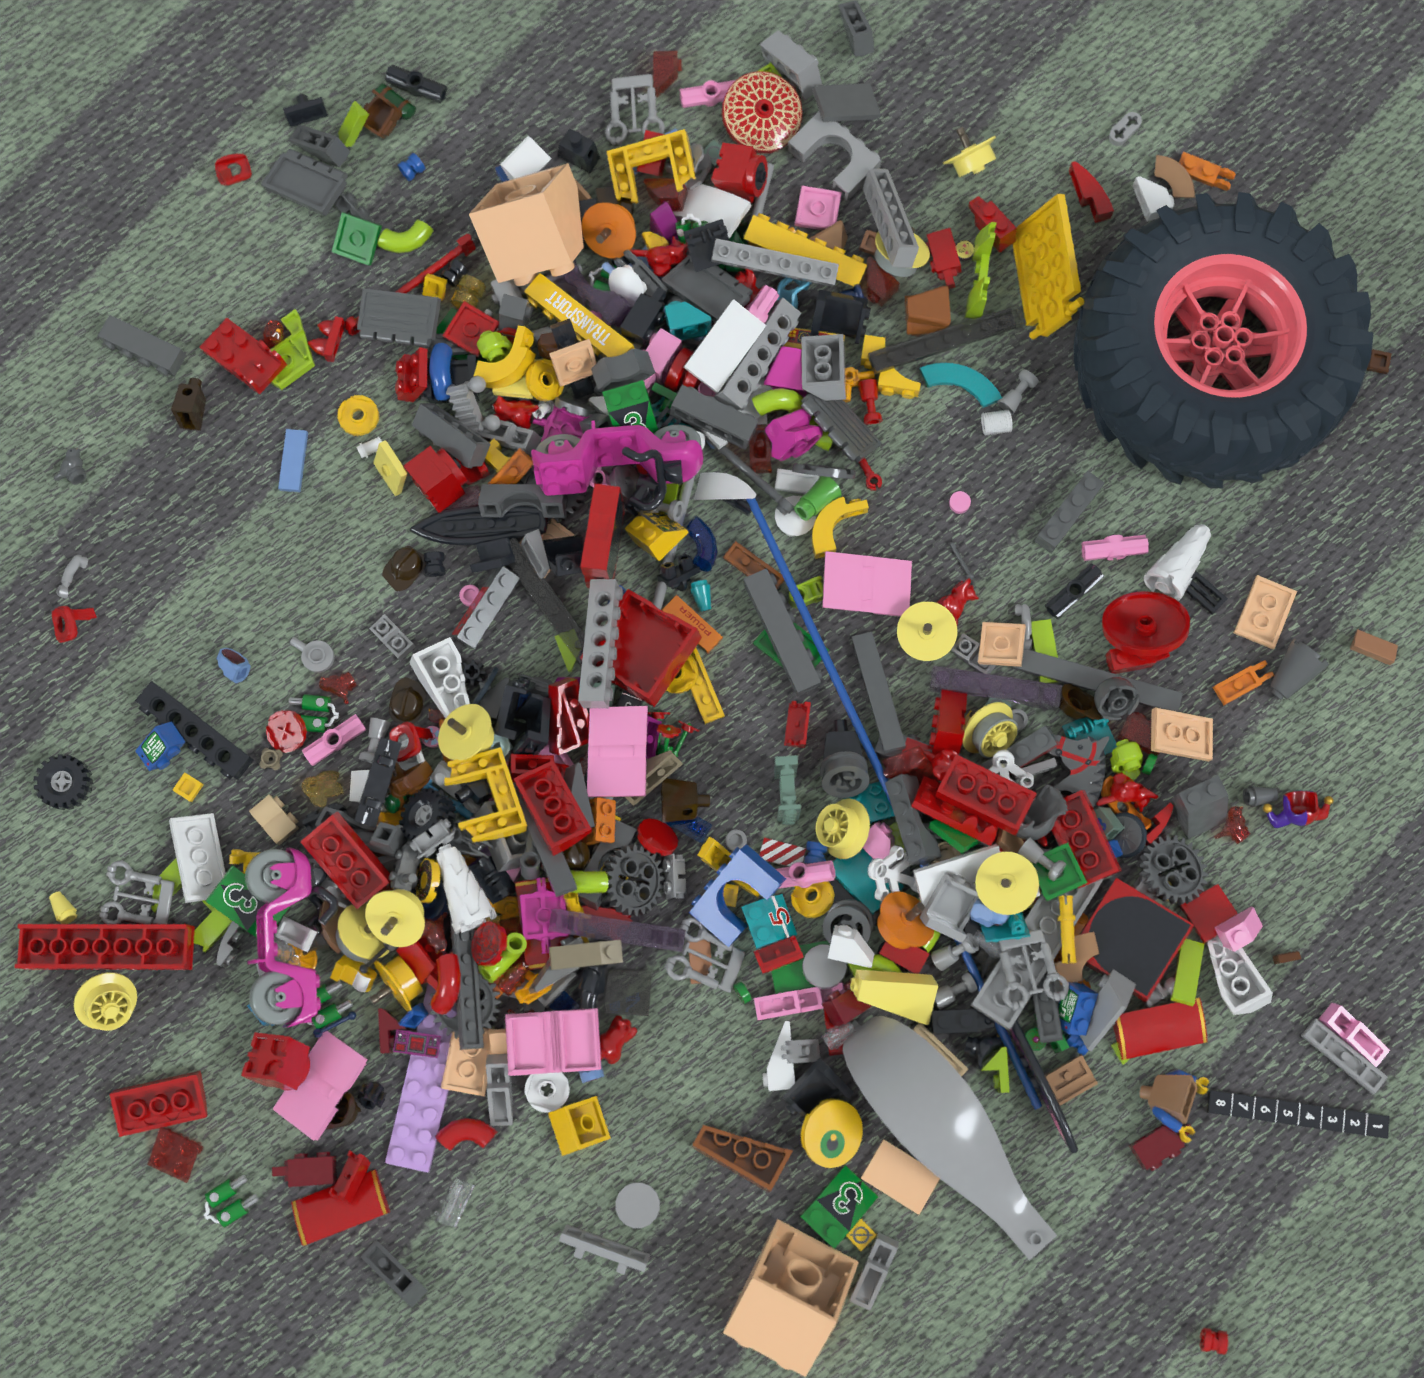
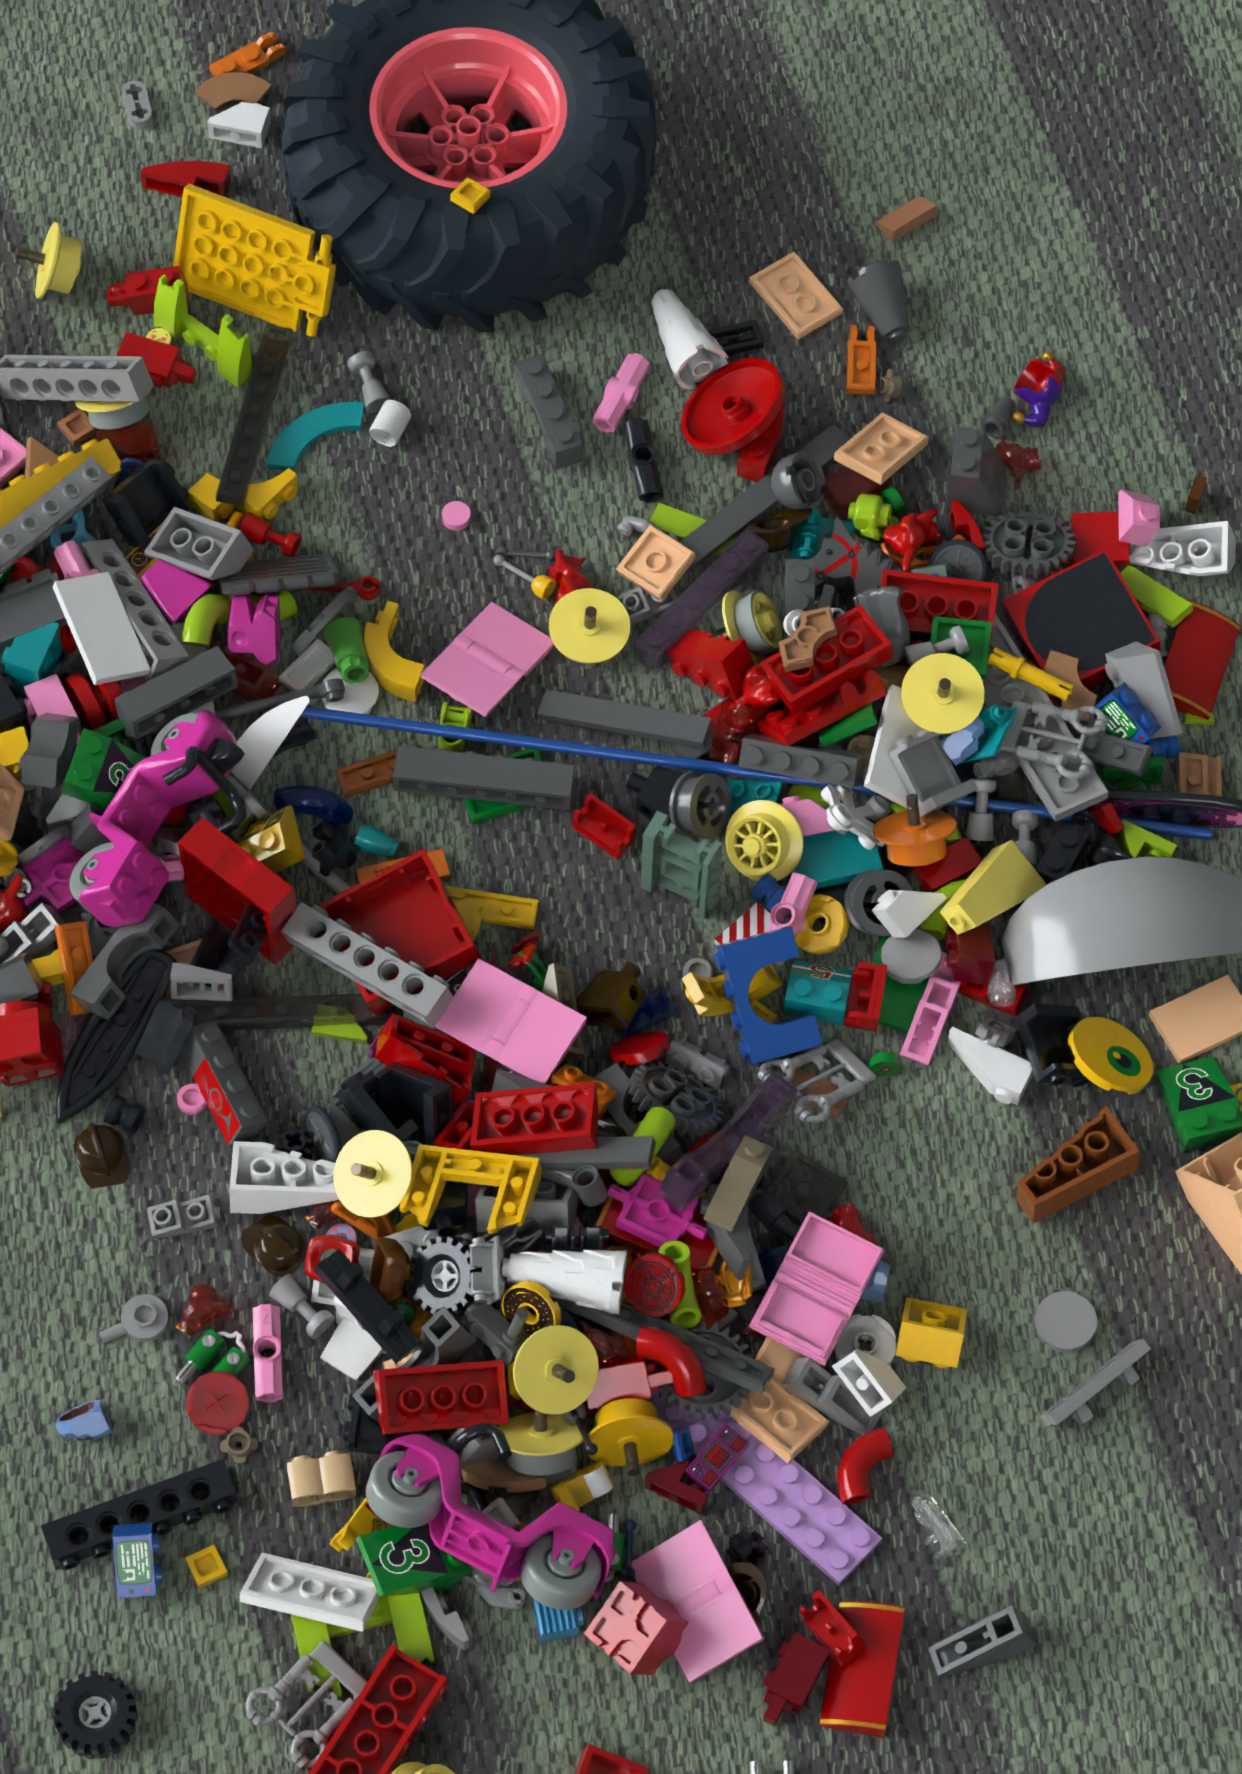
camera: 65 degrees left, 15 degrees down
(325, 787) = (319, 1400): clear yellow plate -> none
(518, 1110) = (869, 1380): none -> white slope
(927, 311) = (207, 414): dark orange piece -> none
(943, 584) = (541, 585): none -> yellow hinge
(979, 773) = (800, 648): none -> medium nougat tile
(999, 1038) = (1107, 818): none -> red tile
(1157, 368) = (470, 195): none -> yellow tile
(1235, 712) = (890, 385): none -> dark tan plate

